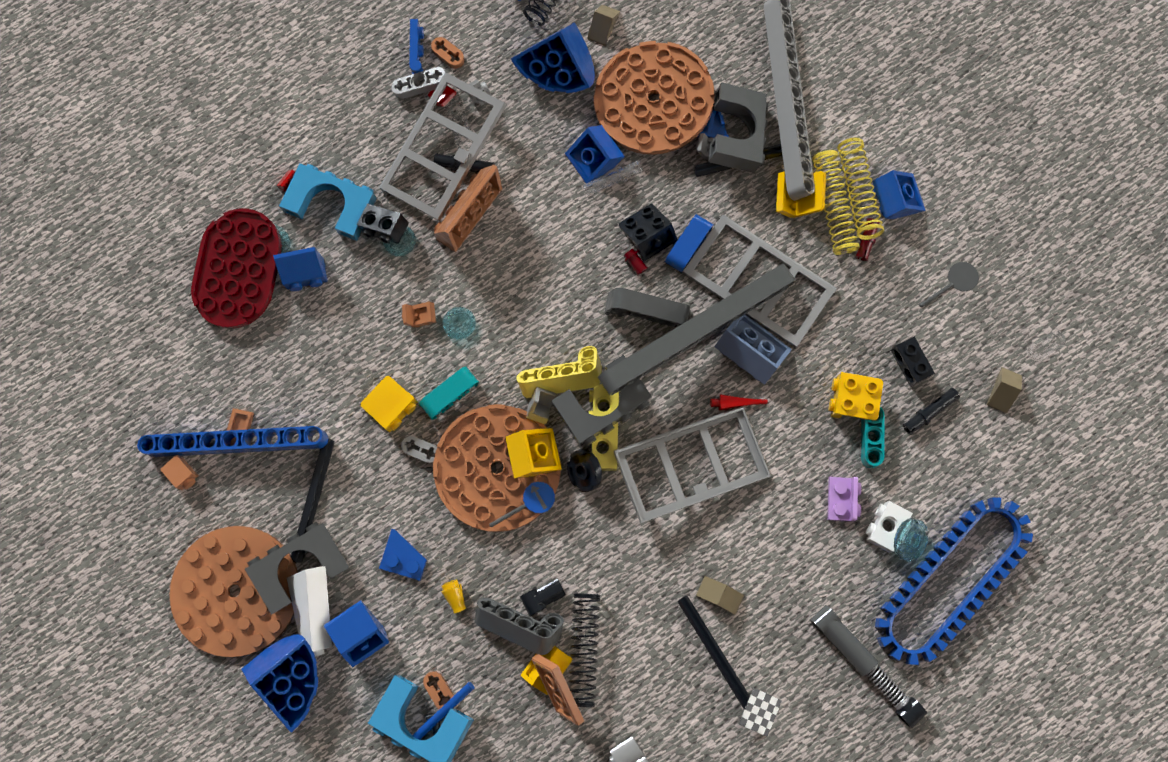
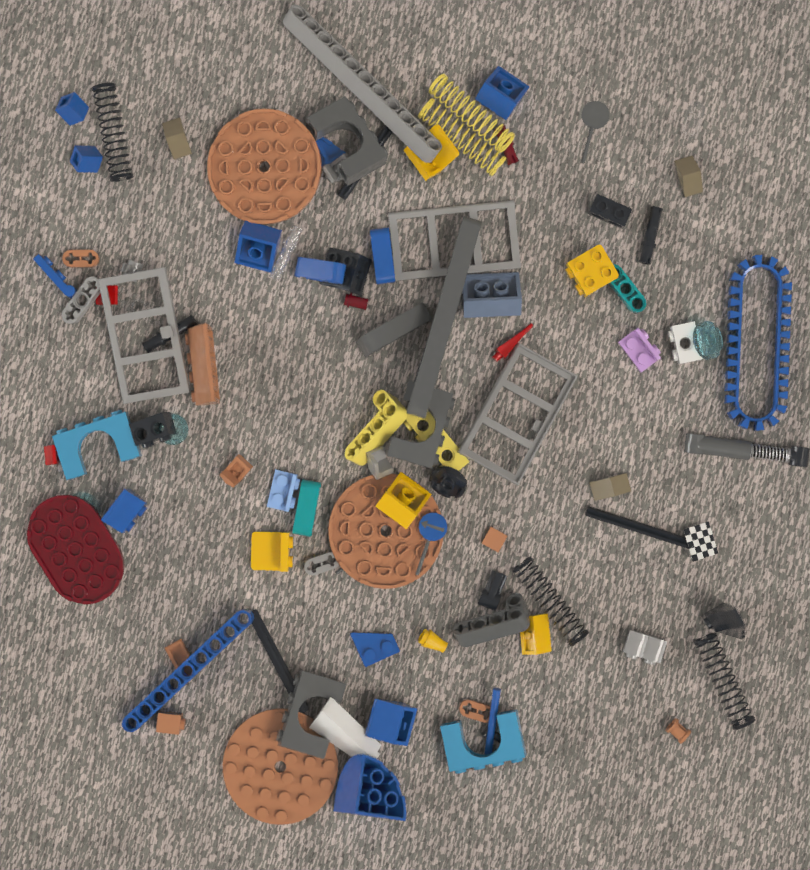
camera: 45 degrees left, 10 degrees up
(442, 363) = (282, 490): none -> light blue bracket
(450, 319) = (260, 455): clear light blue gear -> none
(557, 689) = (556, 642): nougat tile -> none
(558, 62) = (171, 199): blue brick -> none
(581, 554) = (494, 539): none -> nougat tile
(628, 211) = (320, 270): none -> beam

